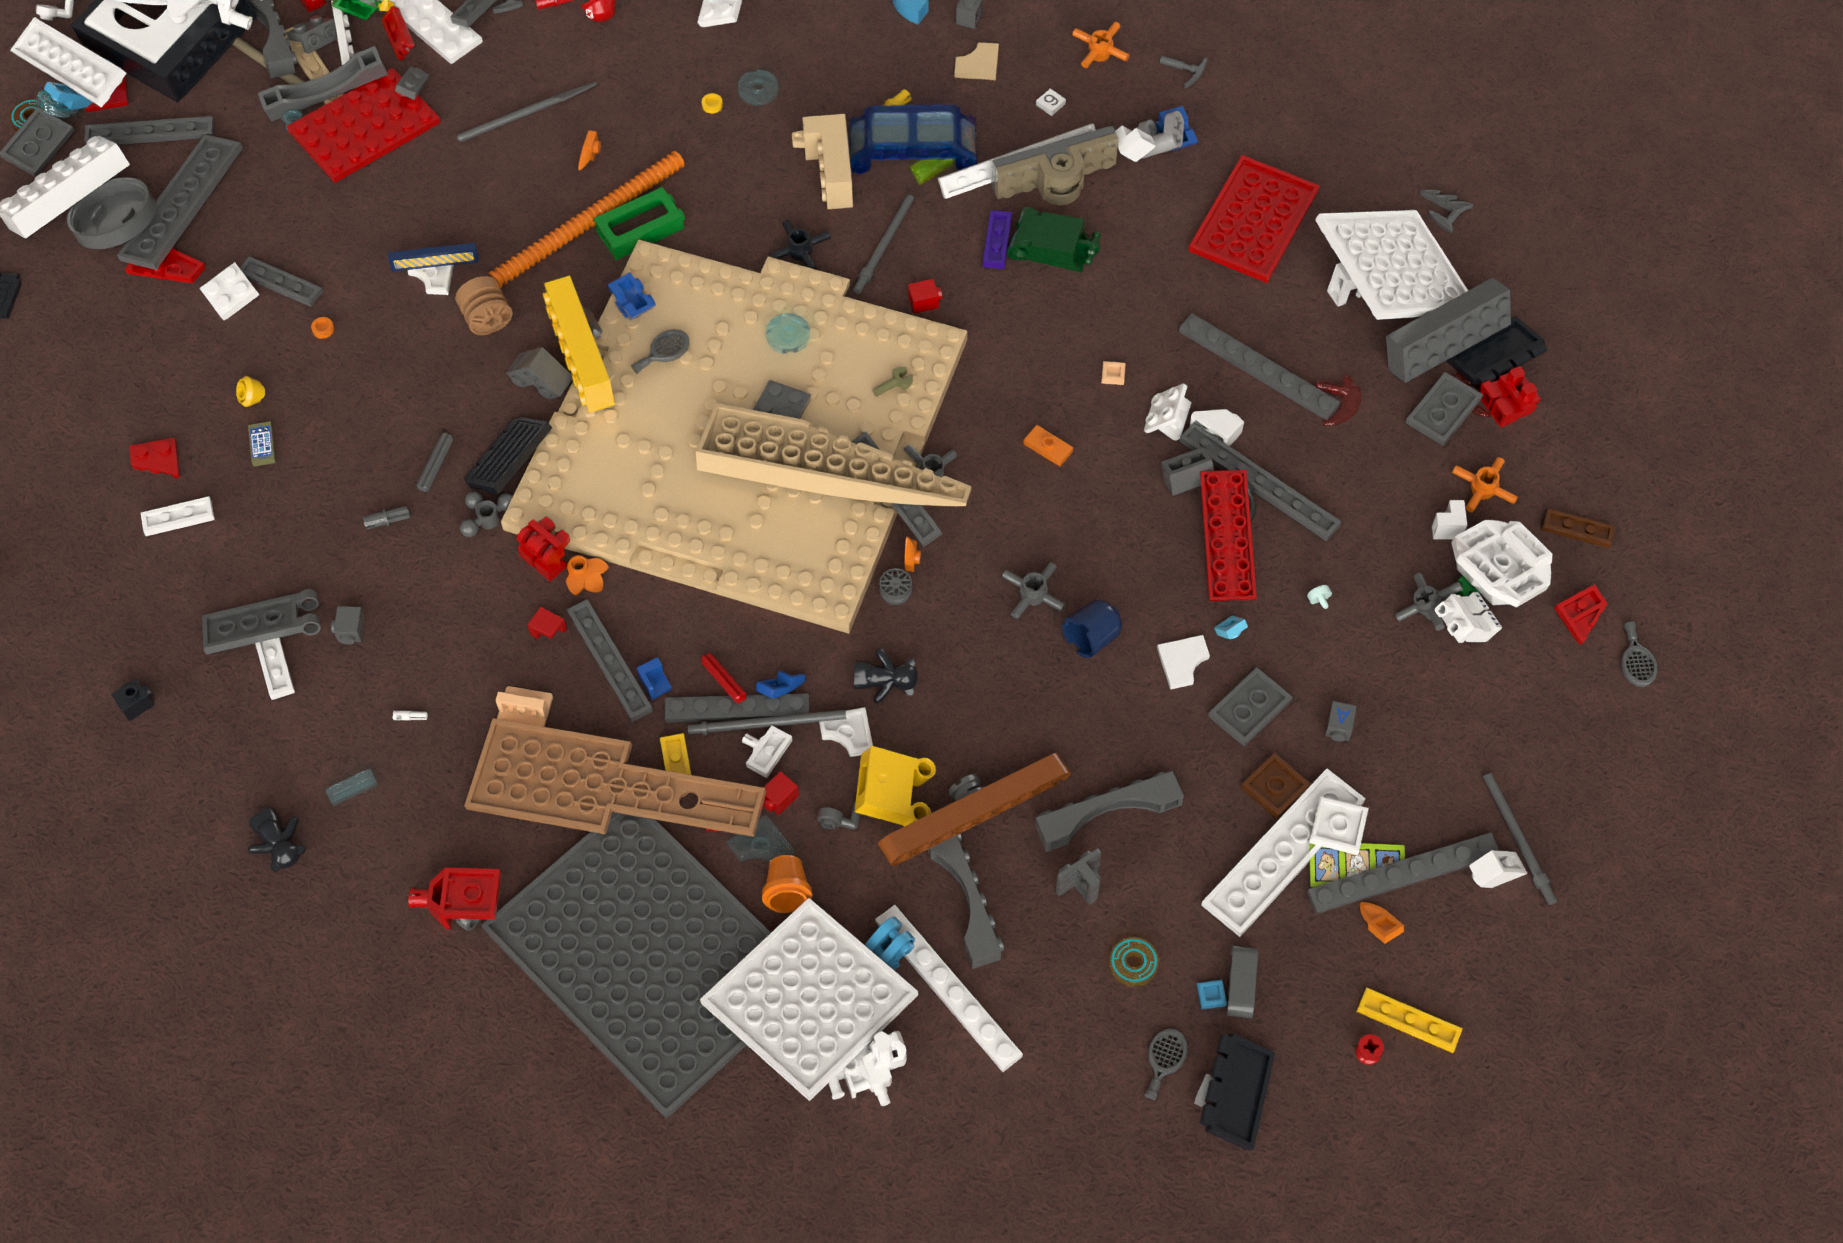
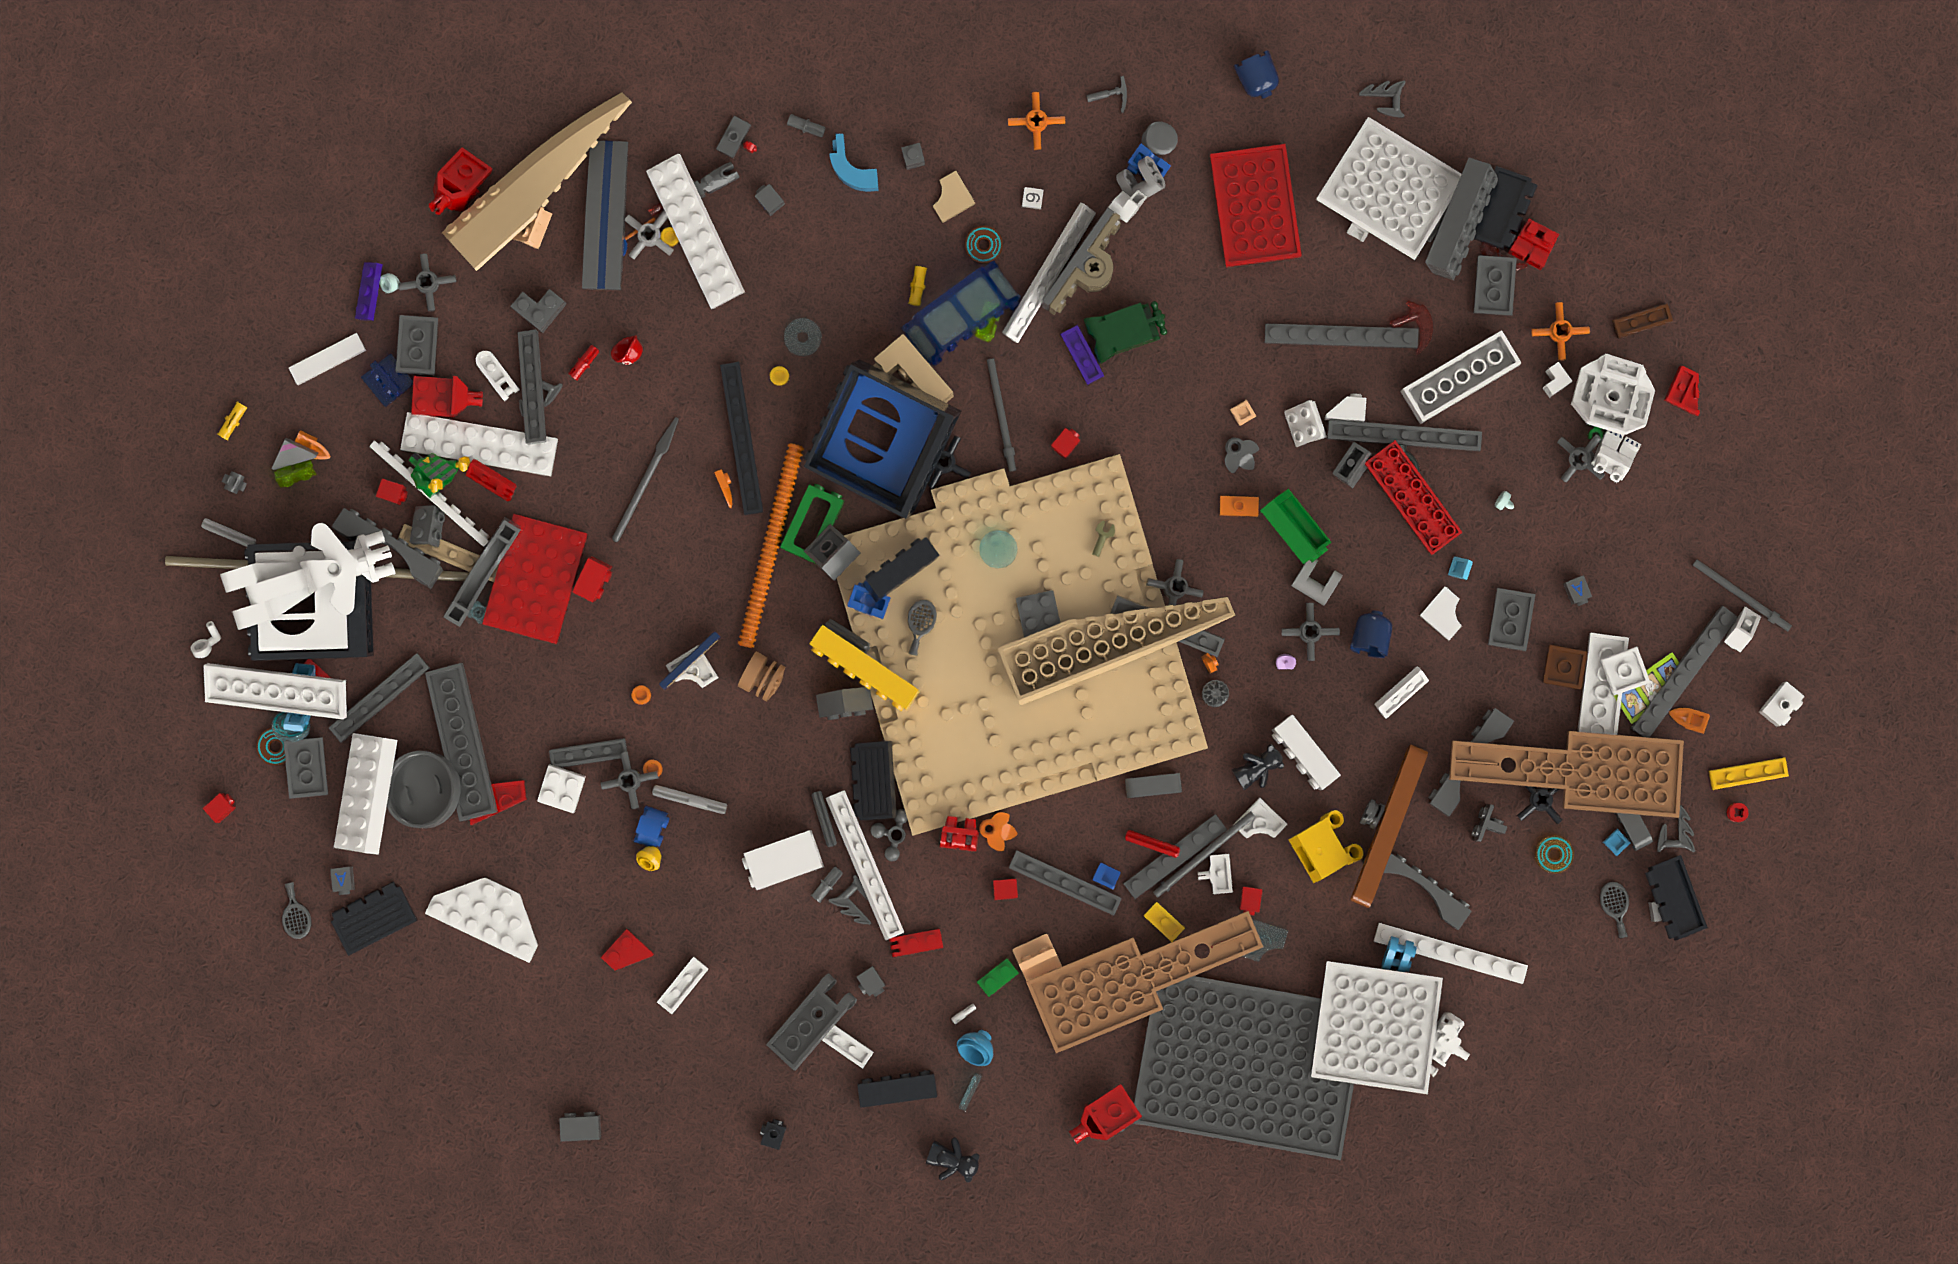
camera: 30 degrees left, 25 degrees up
(70, 351) = (489, 914): none -> white plate
(262, 443) = (690, 889): tile -> none
(273, 368) = (650, 827): none -> blue cylinder
(284, 738) = (897, 1089): none -> black brick
(293, 319) = (637, 779): none -> dark grey bar
(331, 371) = (689, 799): none -> light grey axle
(364, 463) = (782, 860): none -> white brick
(368, 265) = (641, 694): none -> orange tile
(389, 543) = (844, 901): none -> dark grey piece
(392, 747) = (976, 1048): none -> dark azure piece
(410, 149) = (592, 579): none -> red brick
(412, 82) = (543, 519): dark grey plate -> none
(423, 622) = (917, 942): none -> red hinge
(434, 523) = (864, 865): none -> white plate
(471, 704) = (997, 977): none -> green plate
(634, 245) = (832, 552): none -> dark grey slope
(636, 127) = (741, 438): none -> black plate
(682, 287) = (900, 569): none -> black brick
(768, 627) = (1153, 785): none -> dark grey beam
(780, 211) = (917, 417): none -> door
(782, 685) = (1192, 822): blue slope -> none
(786, 885) = (1304, 960): orange piece -> none
(833, 818) = (1296, 894): dark grey plate -> none
(941, 688) = (1305, 752): none -> white brick
(983, 102) = (988, 234): none -> reddish brown tile
(988, 602) = (1285, 661): none -> lavender piece
(1061, 545) = (1313, 588): none -> light grey connector
(1083, 407) = (1242, 457): none -> dark grey plate
(1085, 701) = (1401, 692): none -> white plate
(1089, 485) = (1296, 527): none -> green piece
(1155, 885) = (1542, 807): none -> black bar
(1204, 119) = (1160, 138): none -> dark grey piece
(1230, 897) = (1594, 771): none -> medium nougat piece
(1288, 1041) = (1683, 839): none -> dark grey piece
(1333, 116) = (1258, 75): none -> dark blue cylinder
(1353, 461) = (1460, 377): none -> white brick
(1494, 970) = (1781, 704): none -> white brick
(1630, 628) = (1727, 385): dark grey piece -> none

